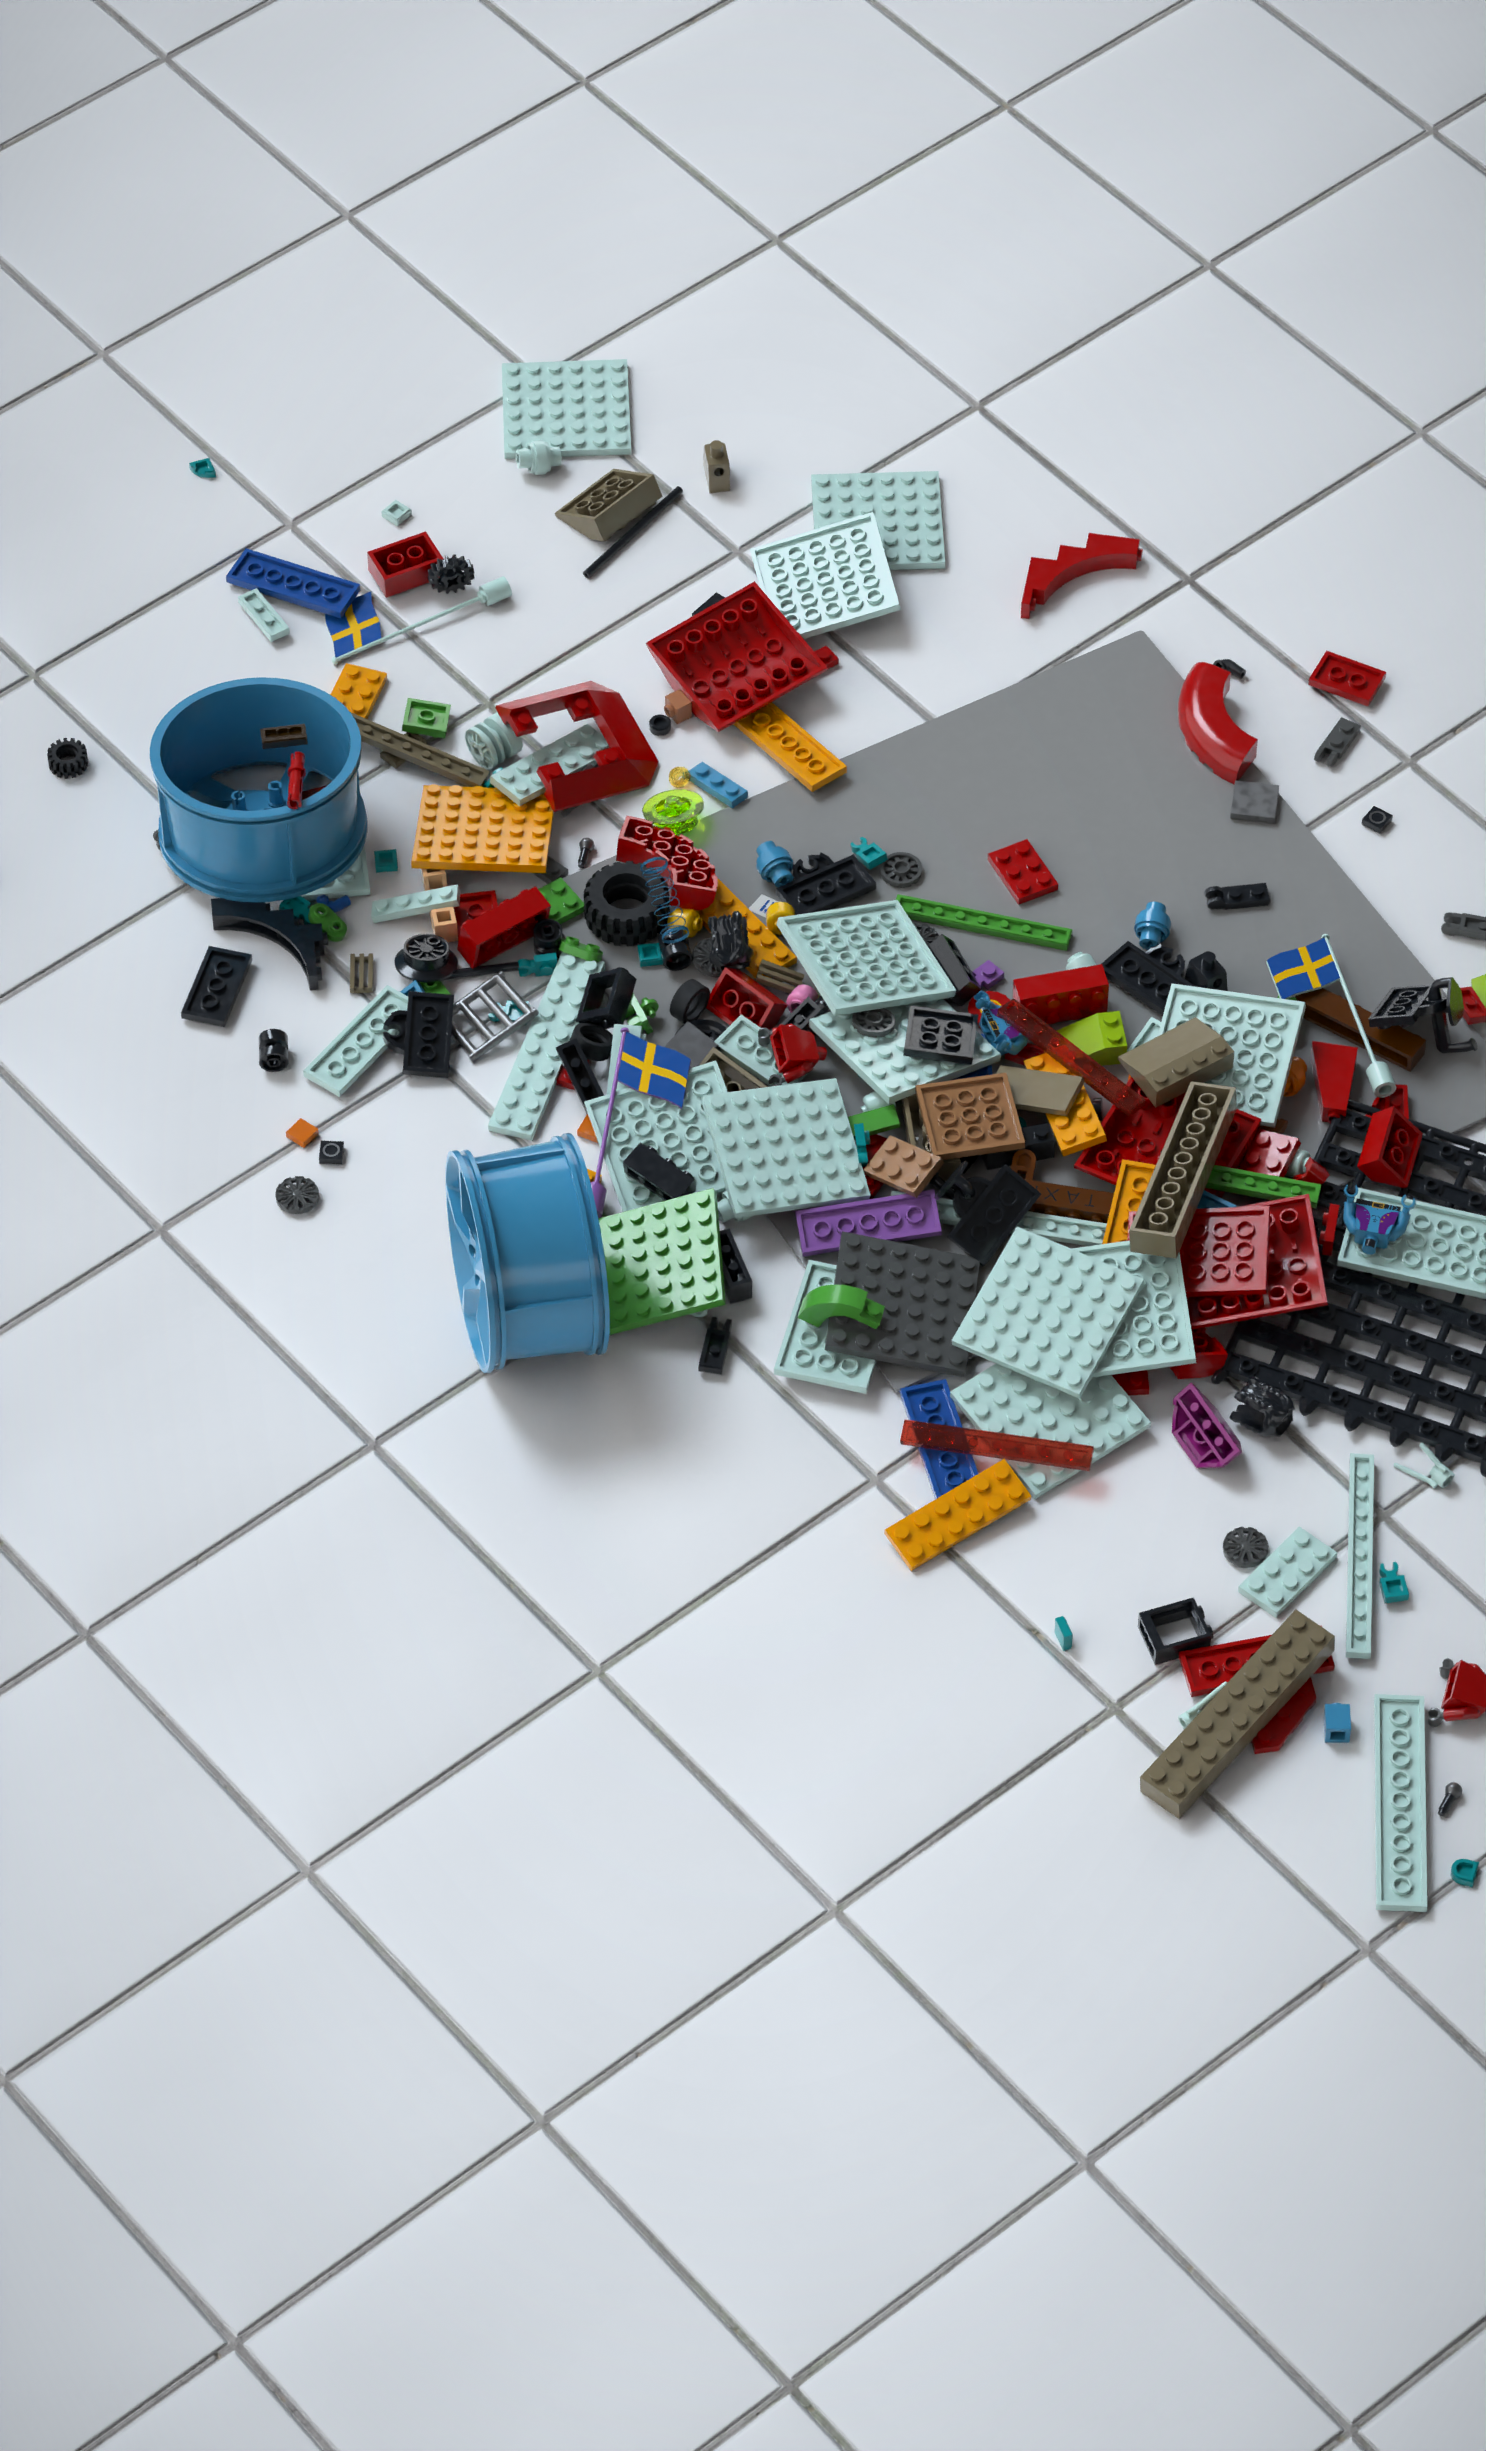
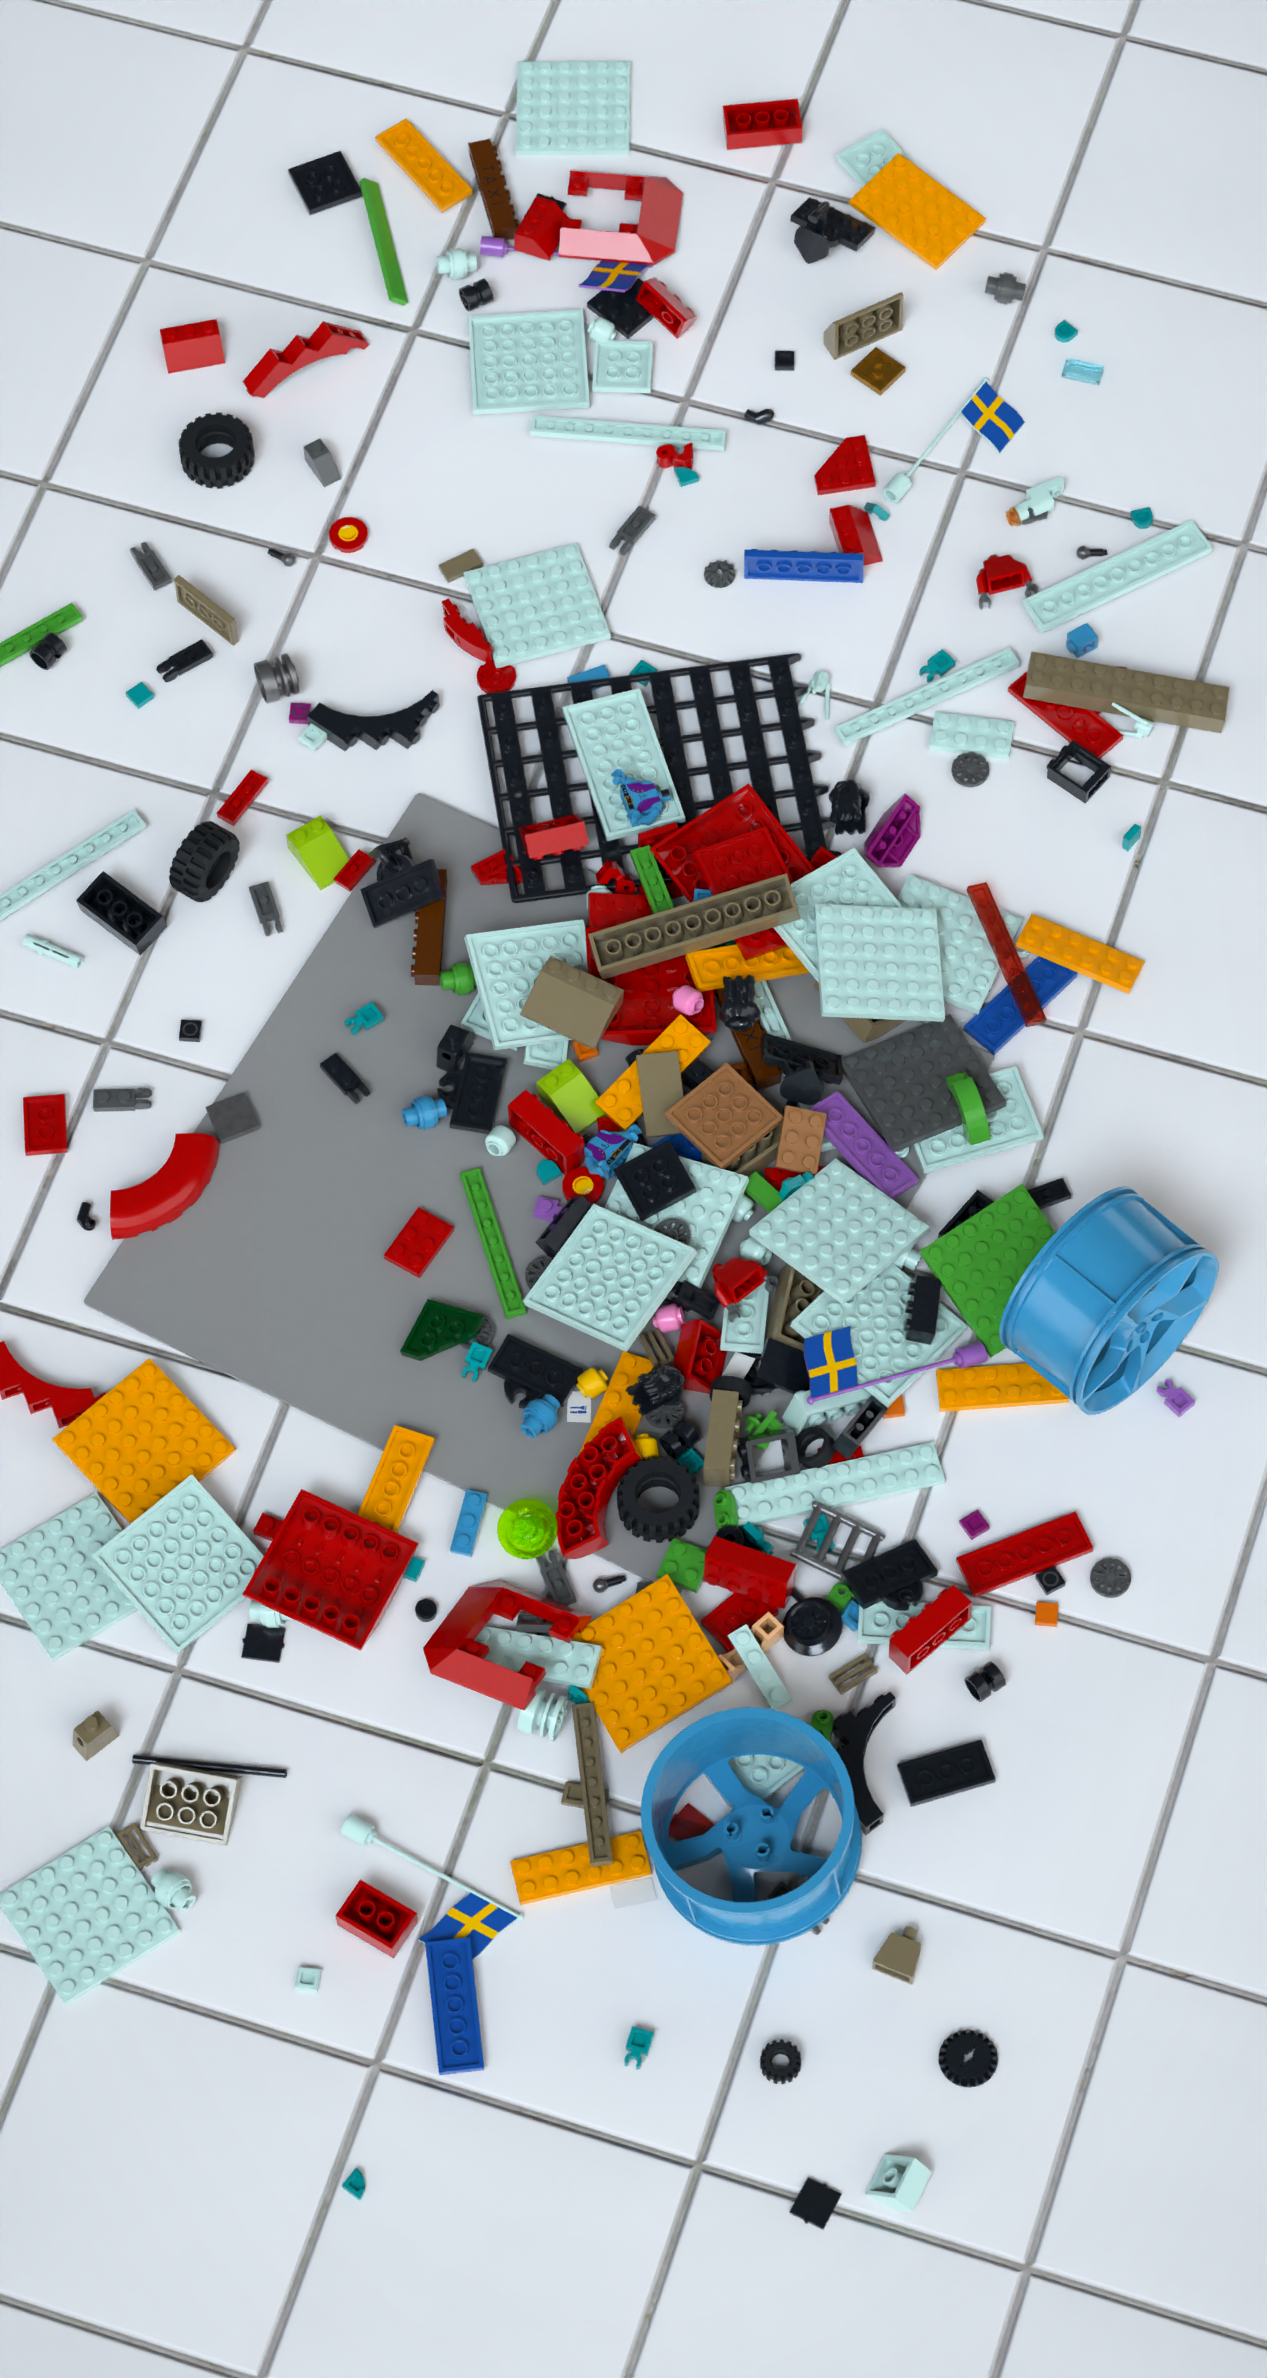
camera: 120 degrees left, 10 degrees up
(84, 873) = (899, 1956): none -> dark tan torso
(160, 680) = (639, 2044): none -> teal plate
(263, 615) = (507, 2008): light aqua plate -> none
(283, 736) = (726, 1786): dark brown plate -> none
(297, 774) = (764, 1743): red pin -> none
(346, 1019) = (929, 1629): none -> red brick
(369, 1144) = (1024, 1554): none -> red plate
(425, 1334) = (1177, 1399): none -> medium lavender plate
(426, 718) = (544, 1792): bright green plate -> none
(429, 1128) = (974, 1524): none -> magenta tile
(451, 574) = (369, 1868): black gear -> none
(599, 460) = (145, 1861): none -> dark tan tile
(609, 815) = (556, 1580): none -> dark grey hinge
(655, 871) = (640, 1468): dark azure piece -> none
(655, 971) = (722, 1438): none -> dark tan brick
(674, 775) = (484, 1555): clear yellow plate -> none
(678, 706) = (401, 1602): nougat plate -> none
(707, 734) = (414, 1569): none -> teal tile
(709, 1021) = (738, 1365): none -> white sticker
(918, 839) = (440, 1329): none -> dark green plate
(964, 606) = (142, 1441): none -> light orange plate
(1071, 1057) = (614, 1082): clear red tile -> none
(1084, 1185) = (739, 1009): none -> black piece
(1116, 1147) = (688, 1000): none -> bright pink head
(1291, 935) = (365, 1017): none -> teal plate
(1313, 969) = (412, 976): flag -> none
(1333, 1077) = (501, 912): red slope -> none

